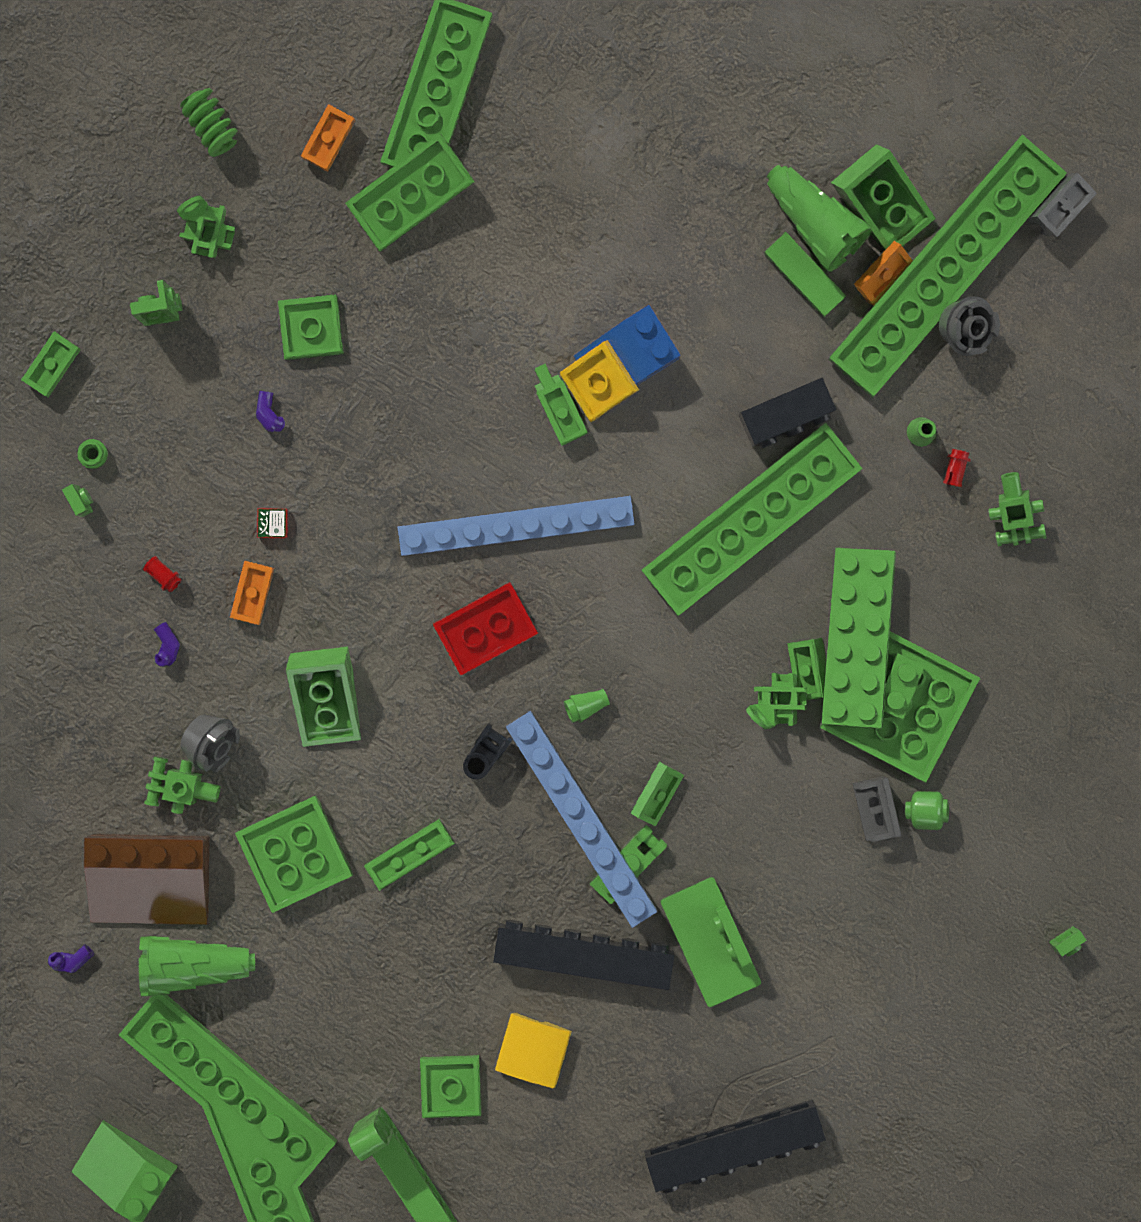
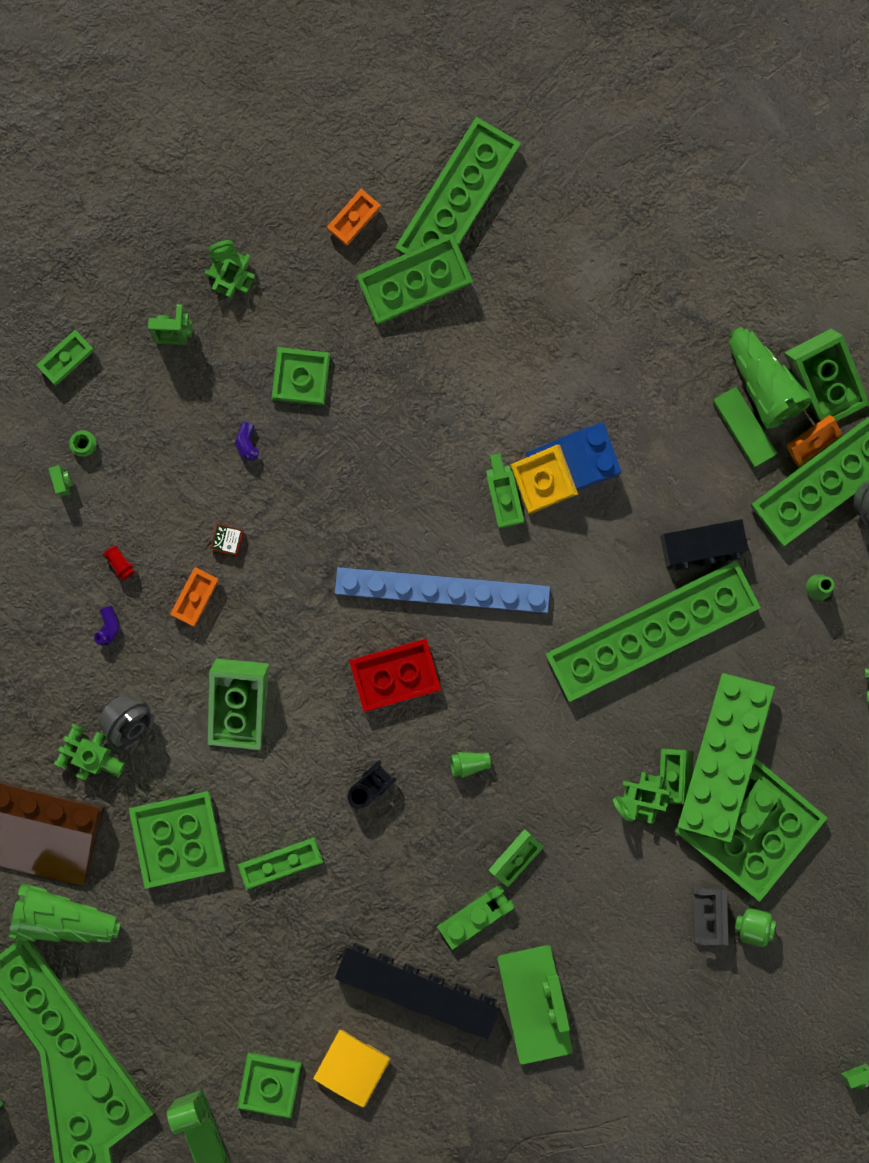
camera: 10 degrees right, 5 degrees down
(208, 122) = (253, 182): bright green piece -> none
(581, 819) = (443, 866): medium blue plate -> none
(956, 467) = (844, 625): red pin -> none

